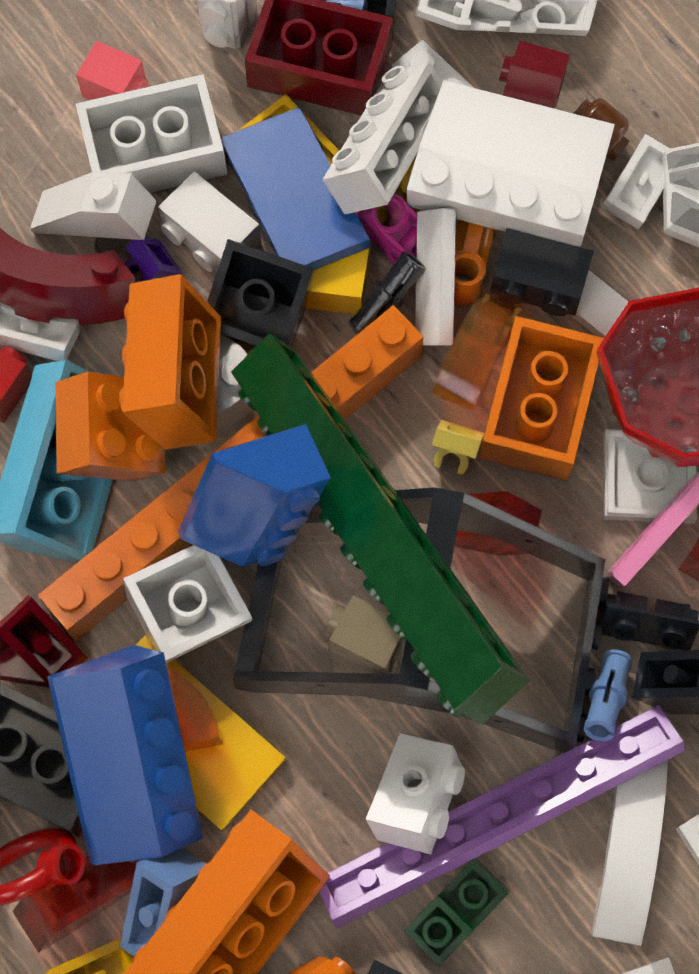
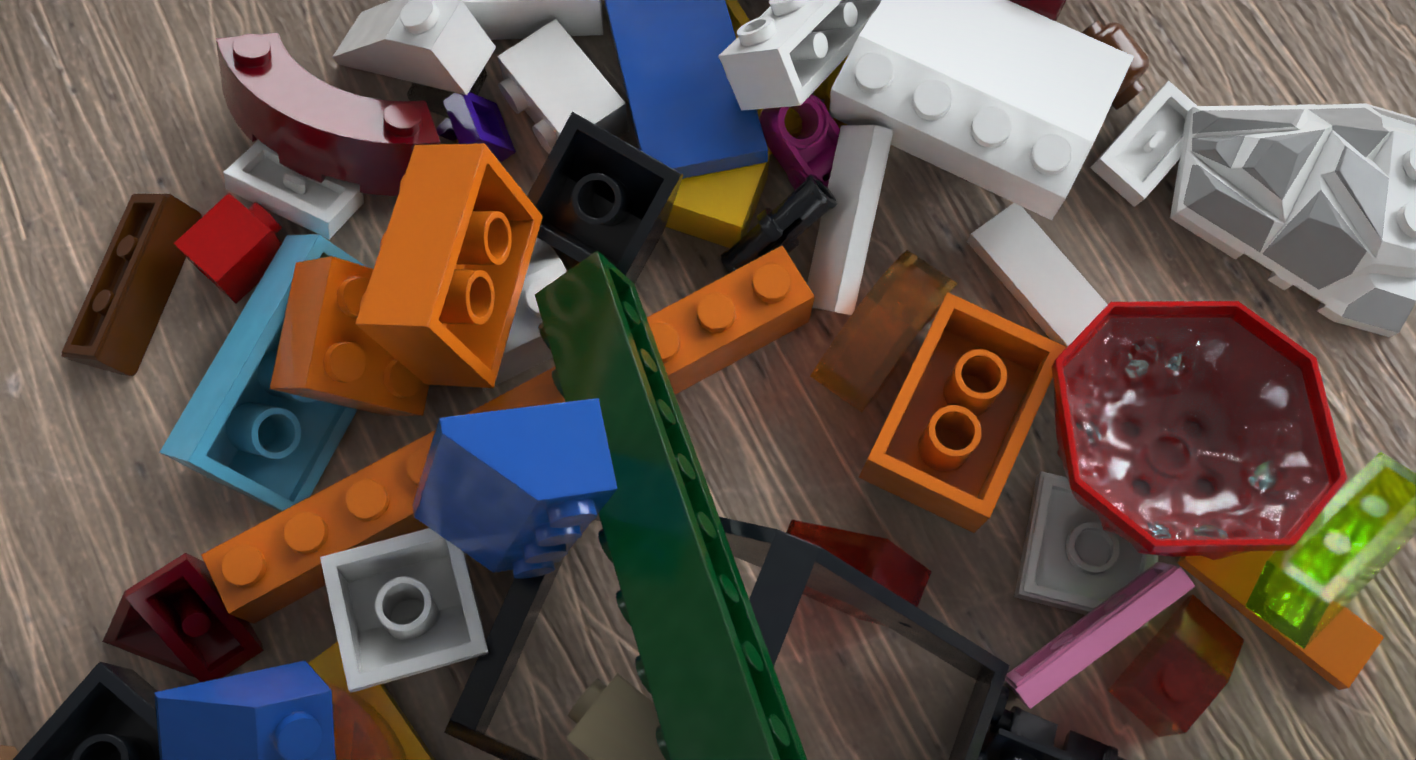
camera: 10 degrees right, 0 degrees up
(456, 440) = (833, 447): light yellow tile -> none
(471, 259) = (901, 202): orange piece -> none
(540, 273) = (993, 239): black brick -> none

